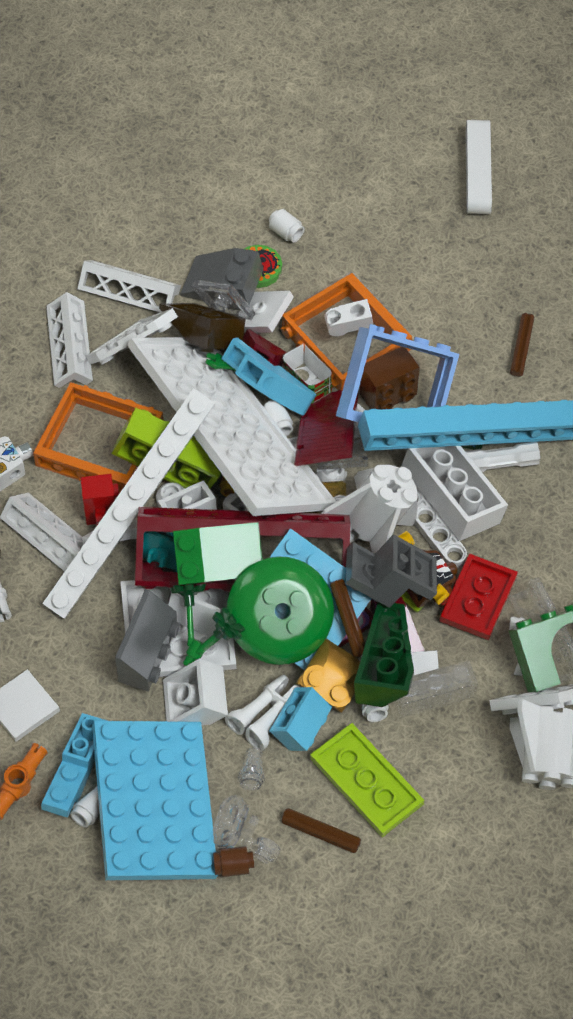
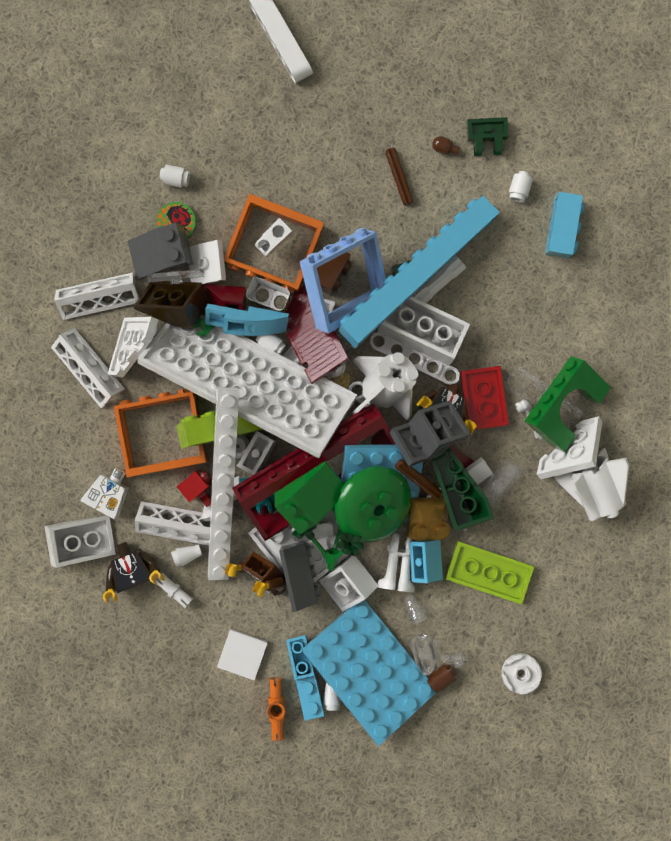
camera: 25 degrees left, 30 degrees up
(36, 567) = (185, 555): none -> white cone
(108, 624) = (264, 573): none -> reddish brown torso
(321, 830) = (481, 622): reddish brown axle -> none
(335, 901) = (521, 684): none -> white plate

